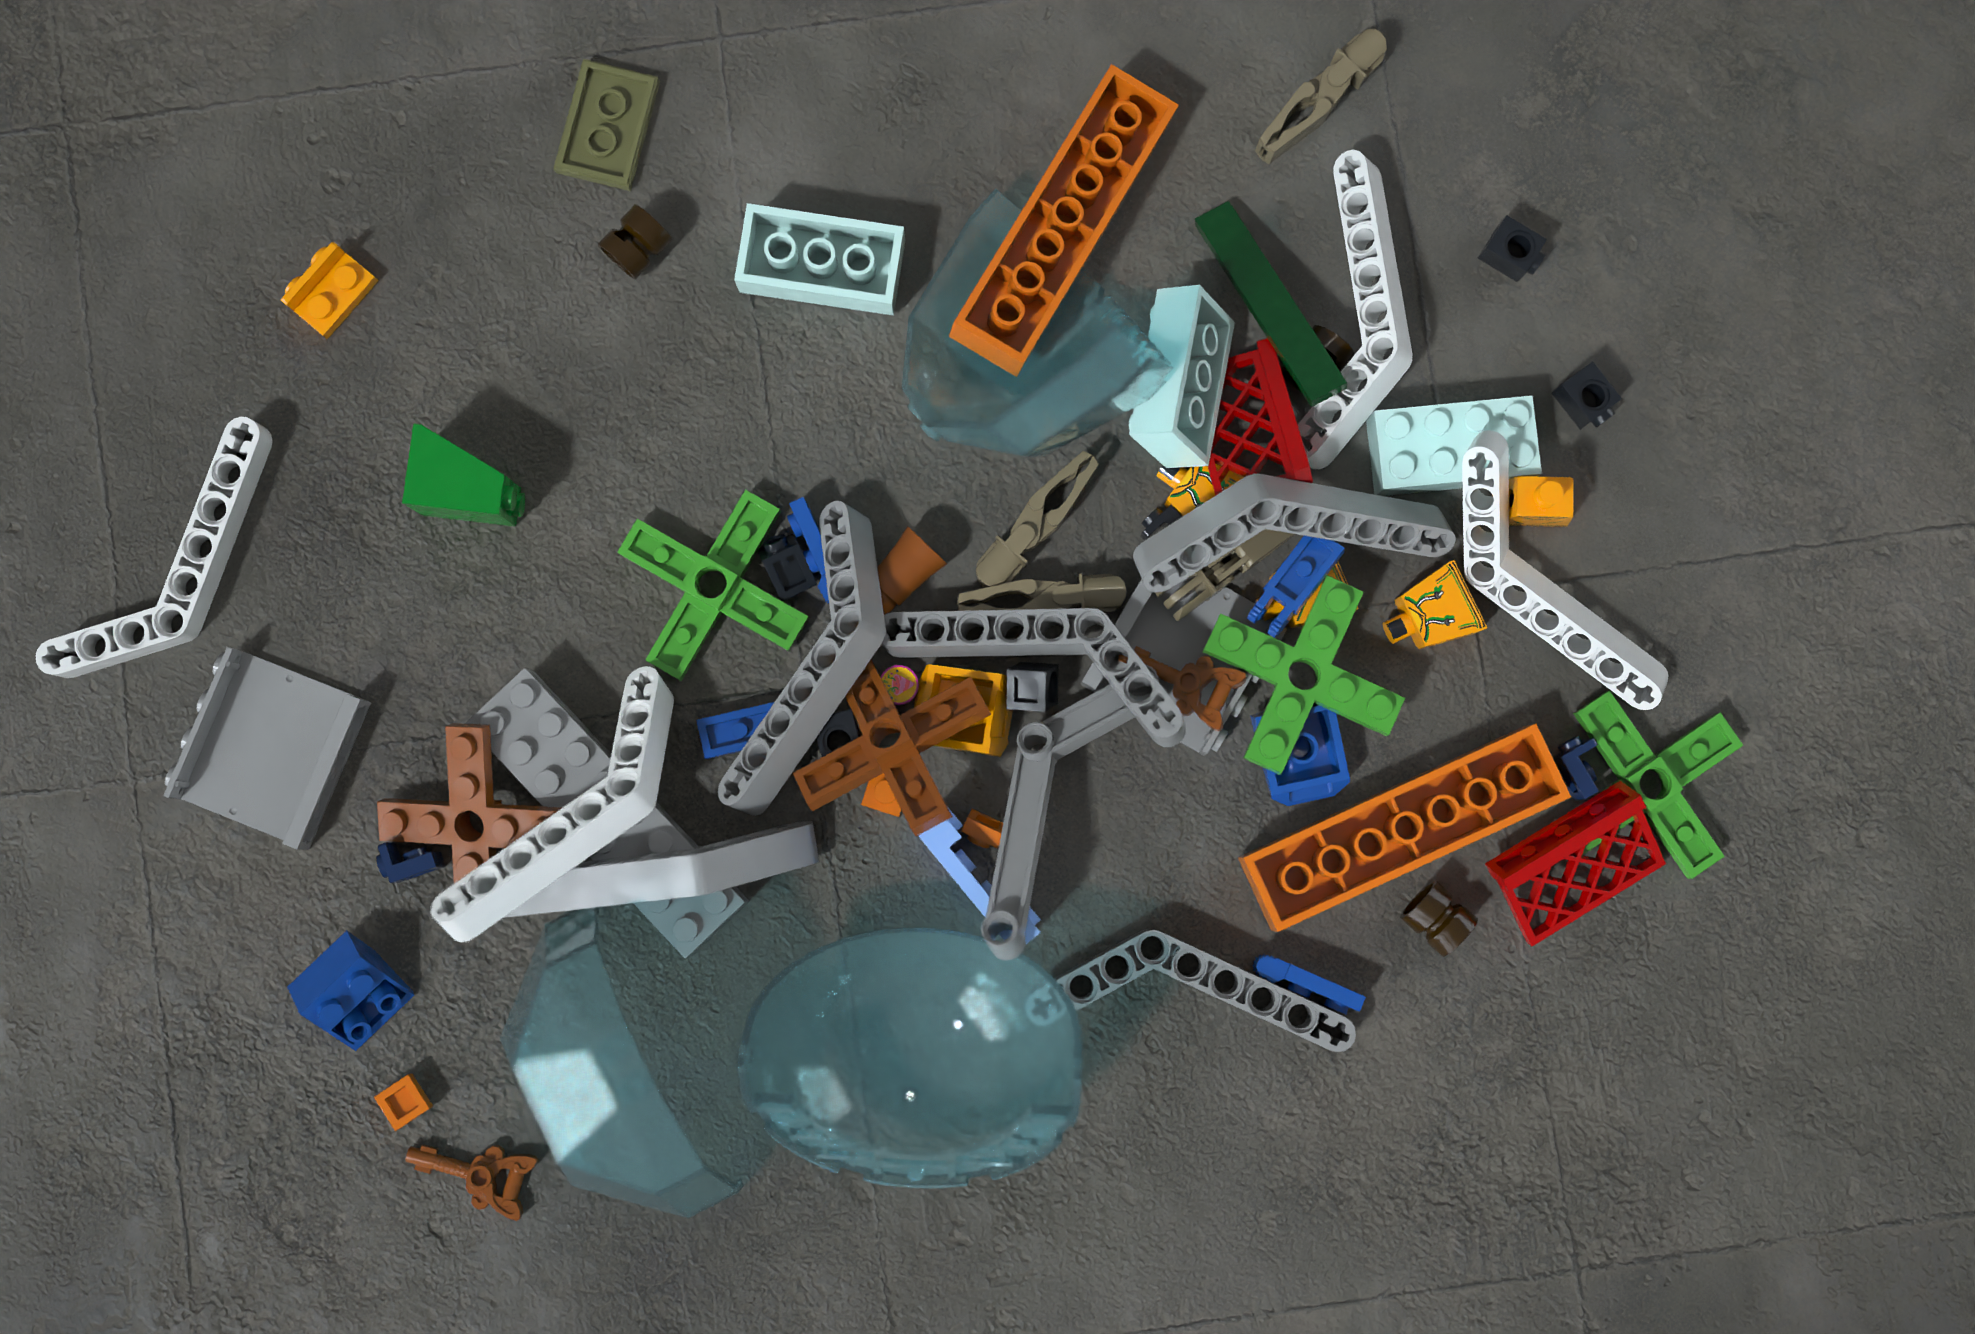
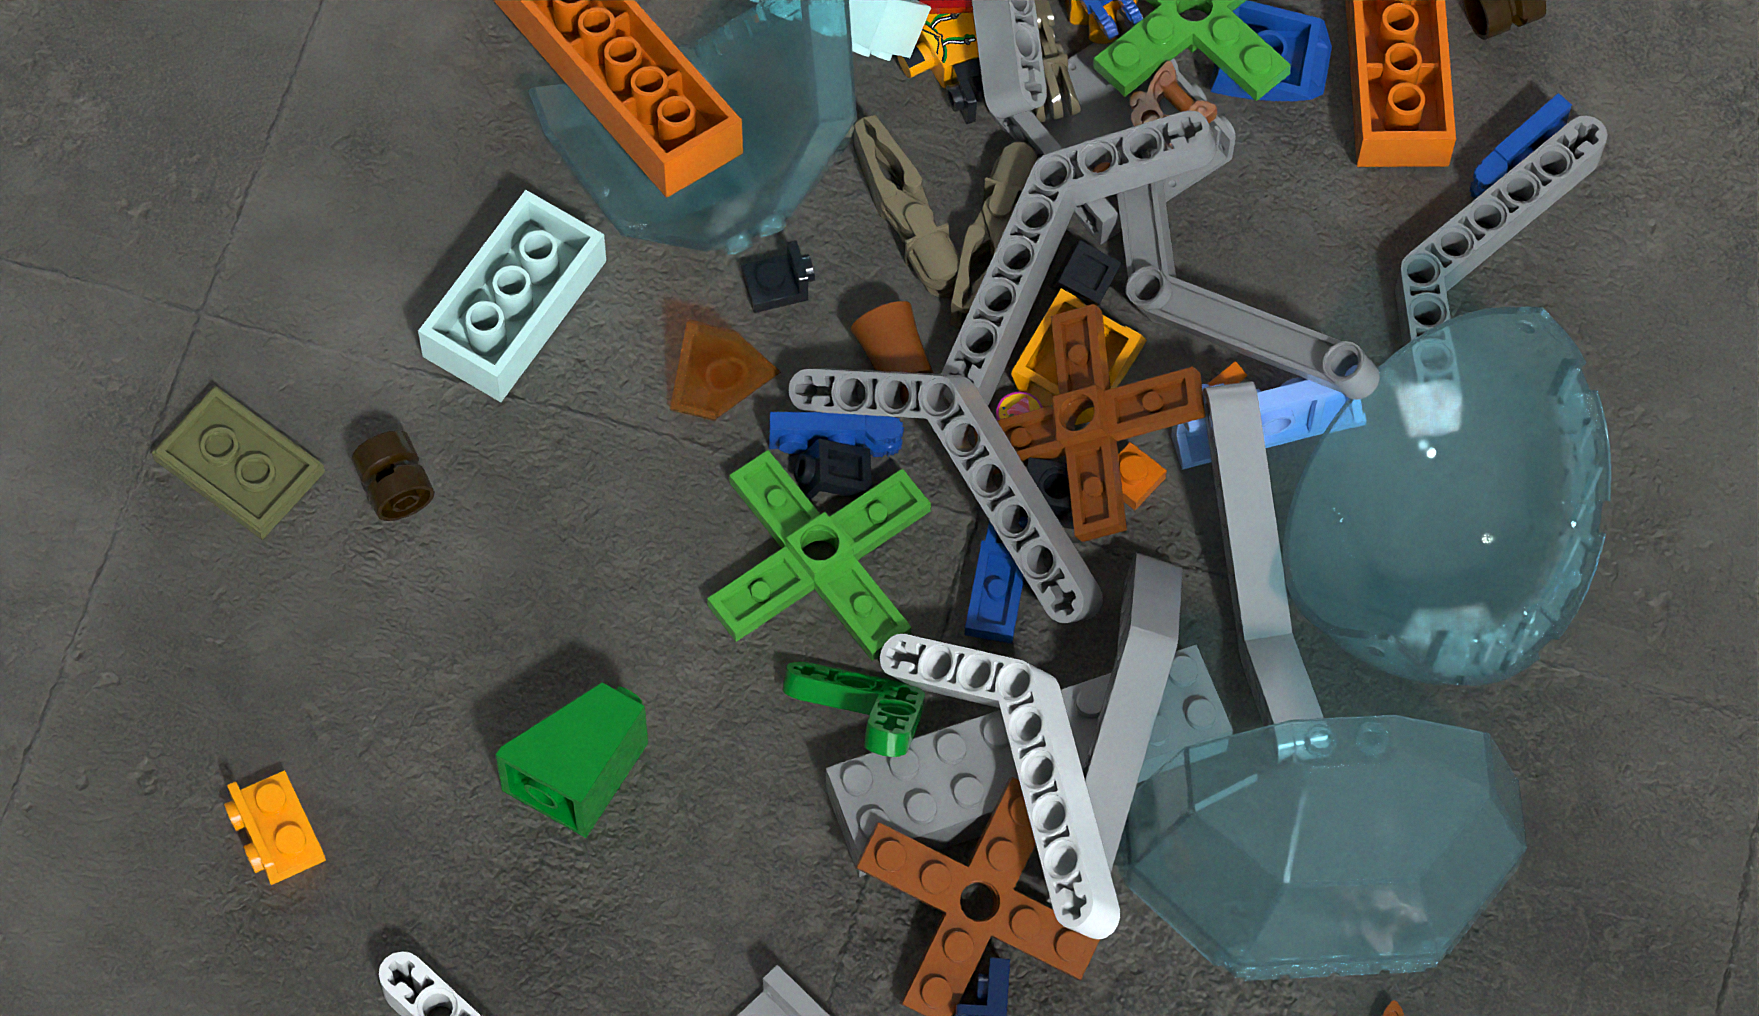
camera: 65 degrees left, 20 degrees down
(605, 680) = (892, 705): none -> green beam
(815, 928) = (1254, 556): none -> light grey beam
(828, 441) = (716, 371): none -> clear orange slope
(932, 456) = (779, 279): none -> black bracket

